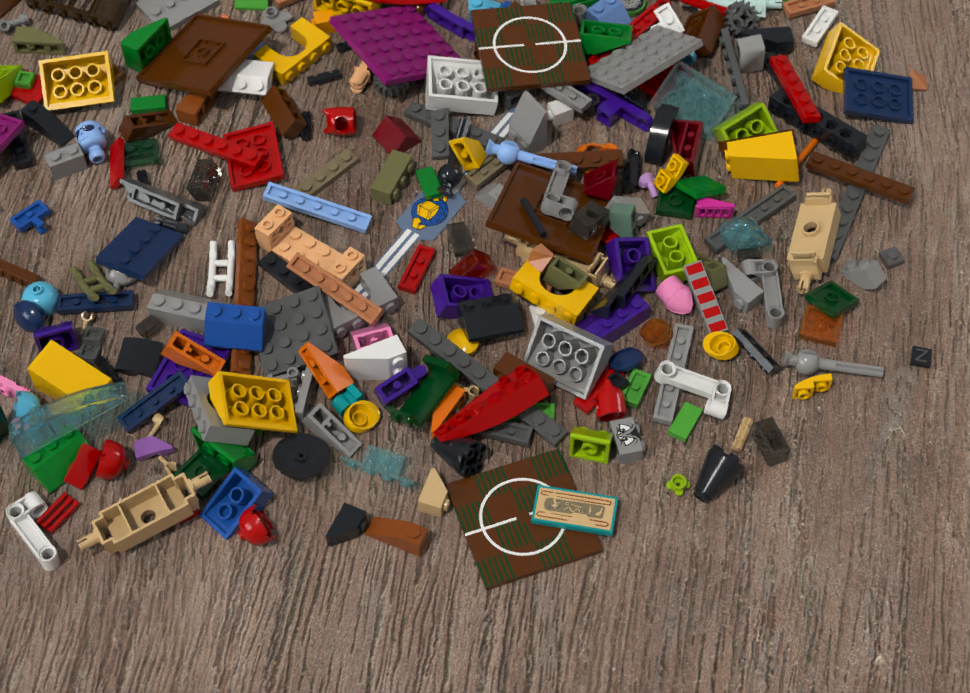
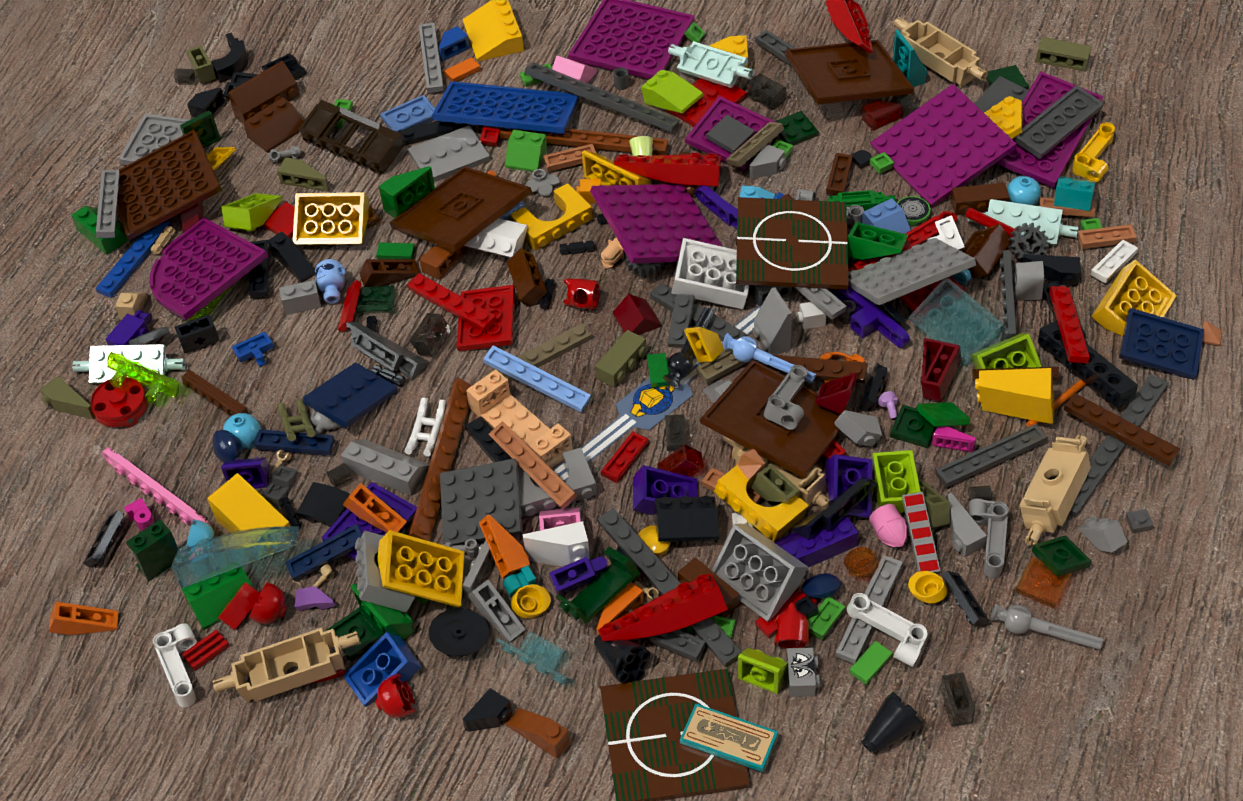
camera: 15 degrees right, 5 degrees down
(25, 79) = (281, 211): bright green tile -> none
(169, 466) = (325, 621): tan hand -> none
(235, 326) = (422, 488): blue slope -> none
(434, 496) = (584, 696): tan slope -> none
(533, 217) = (752, 420): black bar -> none
(589, 220) = (812, 432): clear smoke brick -> none
(623, 220) = (851, 437): sand green slope -> none
(660, 133) = (910, 351): black arch -> none
(668, 177) = (911, 398): yellow slope -> none
(678, 479) = (847, 723): lime plate -> none
(742, 434) = (929, 686): tan axle -> none
(743, 233) = (977, 470): clear light blue slope -> none
(805, 388) = (1010, 647): yellow slope -> none
(920, 357) = (1148, 634): black tile -> none

